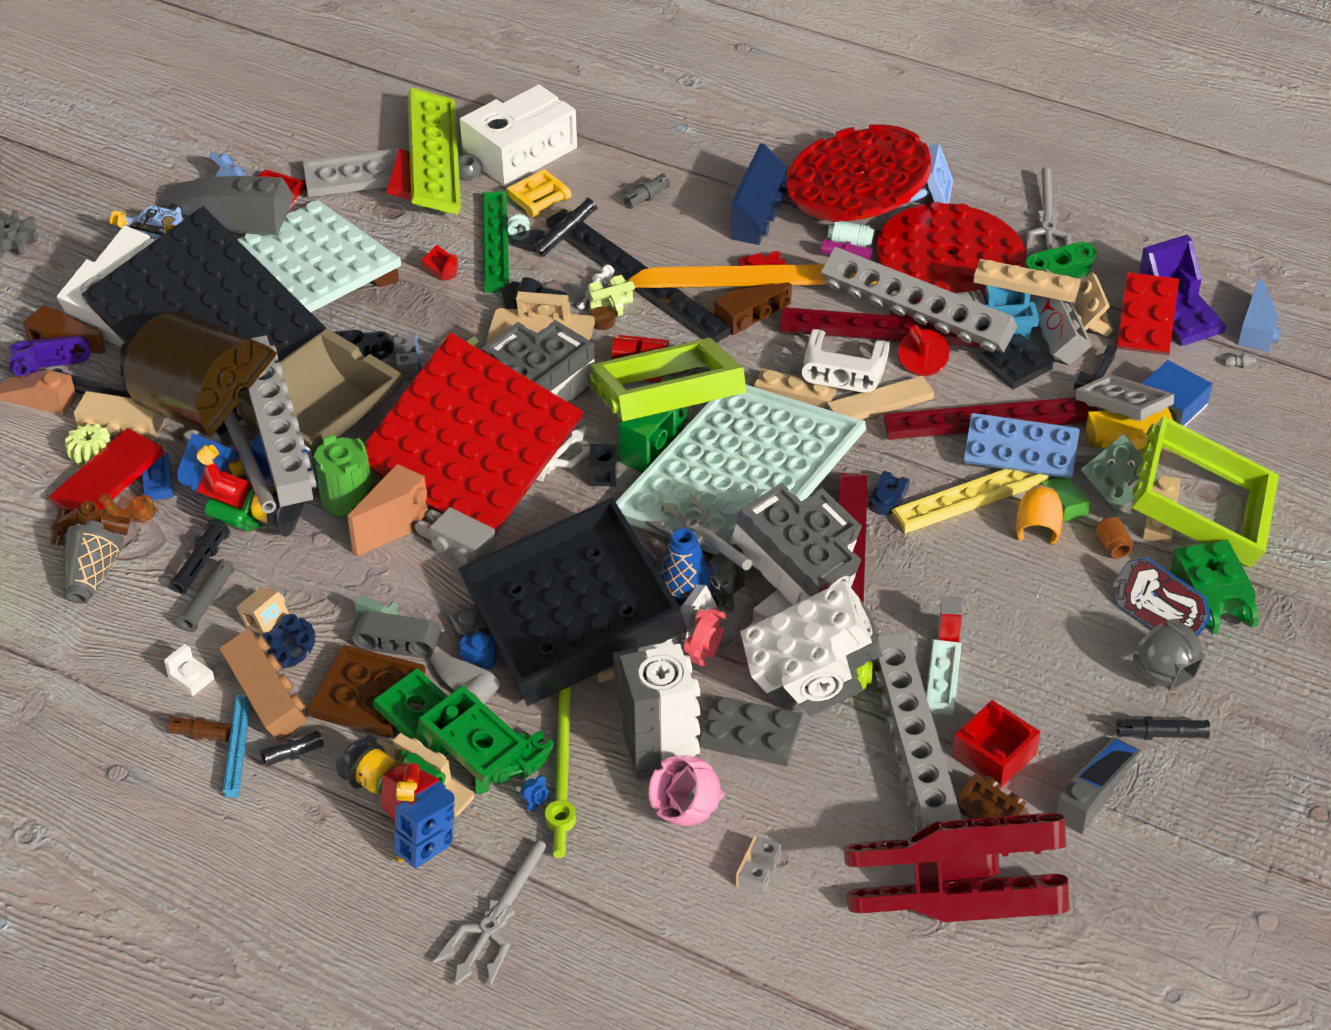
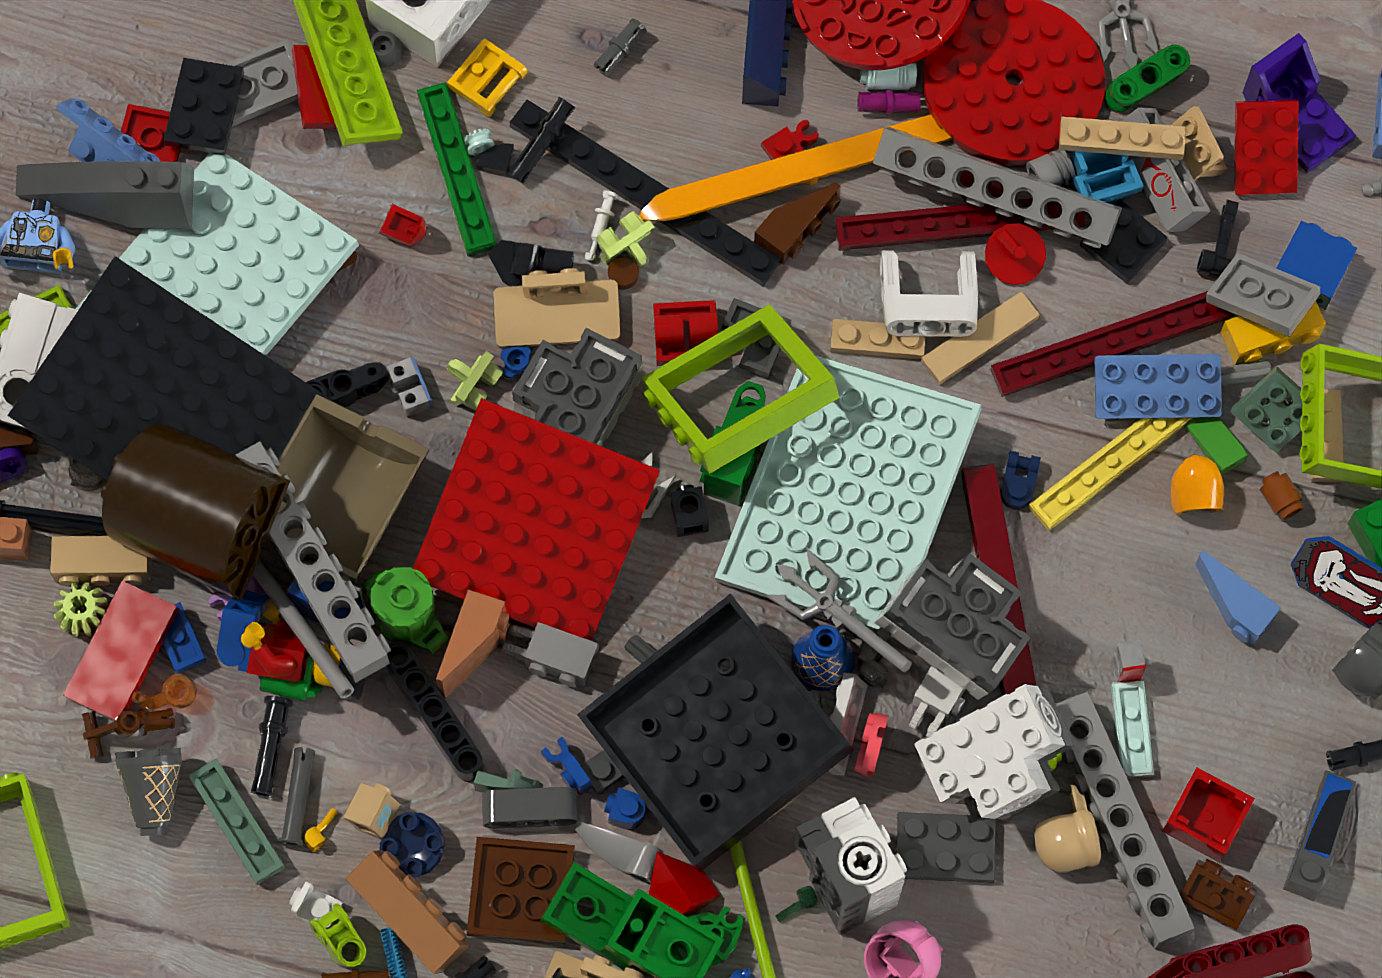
camera: 15 degrees left, 25 degrees up
(149, 602) = (236, 821): none -> sand green plate
(196, 686) = (338, 935): none -> lime piece
(209, 623) = (313, 836): none -> yellow hand
(319, 172) = (204, 106): none -> black plate
(341, 553) = (438, 725): none -> black beam
(442, 614) = (573, 773): none -> blue plate
(509, 707) = (681, 885): none -> red slope
(614, 745) = (807, 899): none -> clear green hand
(862, 735) = (1069, 839): none -> tan piece
(1061, 603) = (1239, 603): none -> medium blue slope

